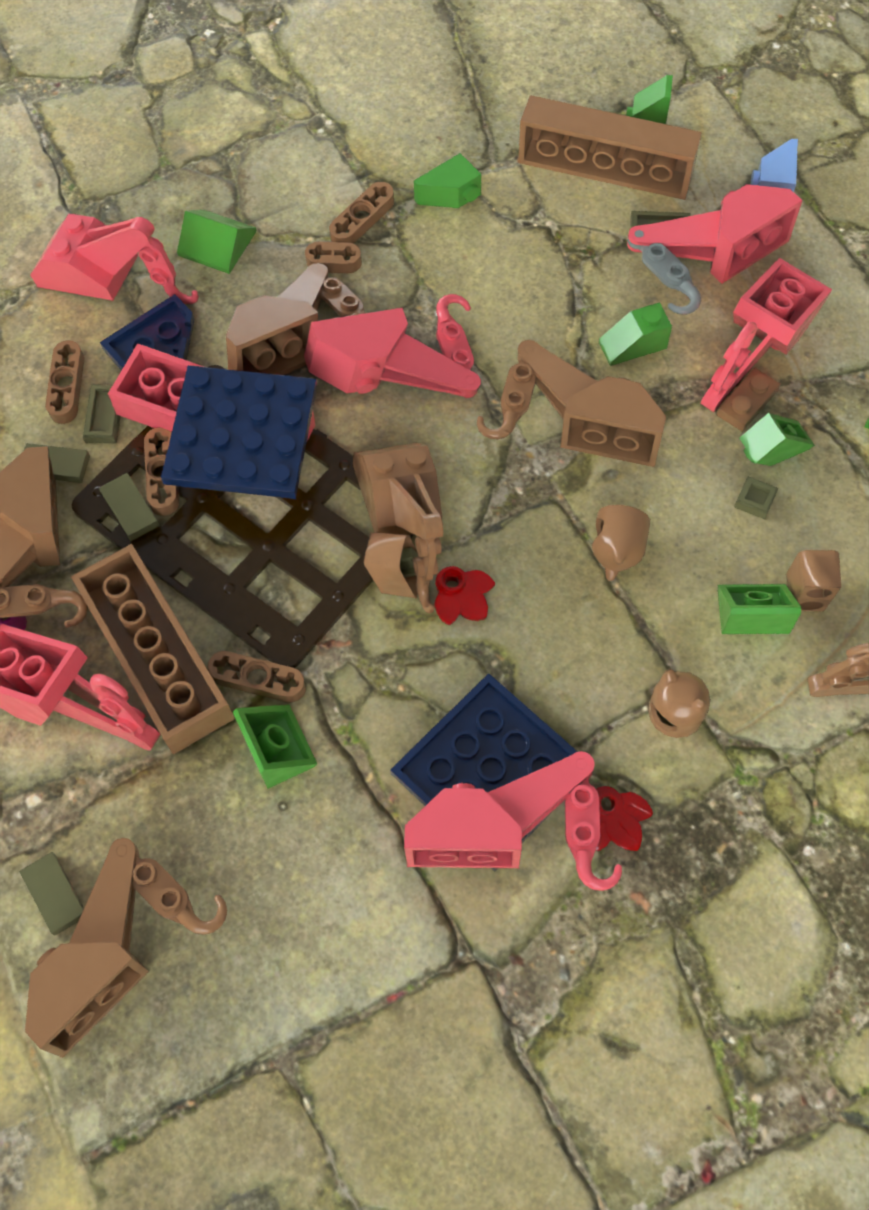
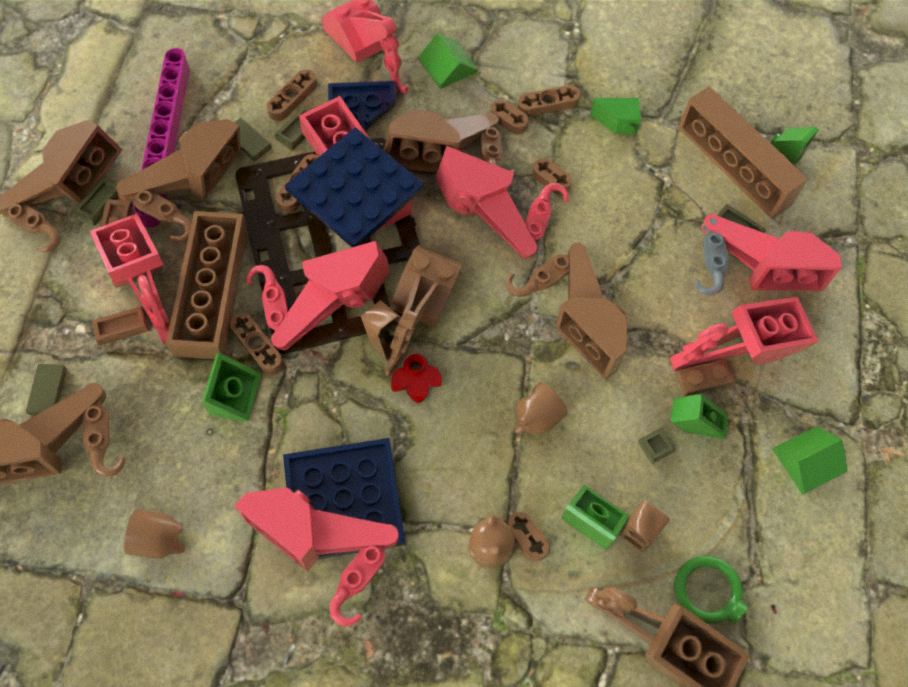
camera: 30 degrees right, 0 degrees up
(80, 764) = (120, 325): none -> medium nougat tile
(129, 507) = (264, 192): olive tile -> none
(299, 549) = (334, 279): none -> coral slope
(323, 952) = (152, 535): none -> medium nougat piece
(430, 291) = (552, 175): none -> medium nougat beam
(622, 820) = (394, 590): red plate -> none
(637, 335) = (661, 287): bright green slope -> none
(709, 670) = (532, 532): none -> medium nougat beam
(778, 167) = (849, 238): light blue slope -> none

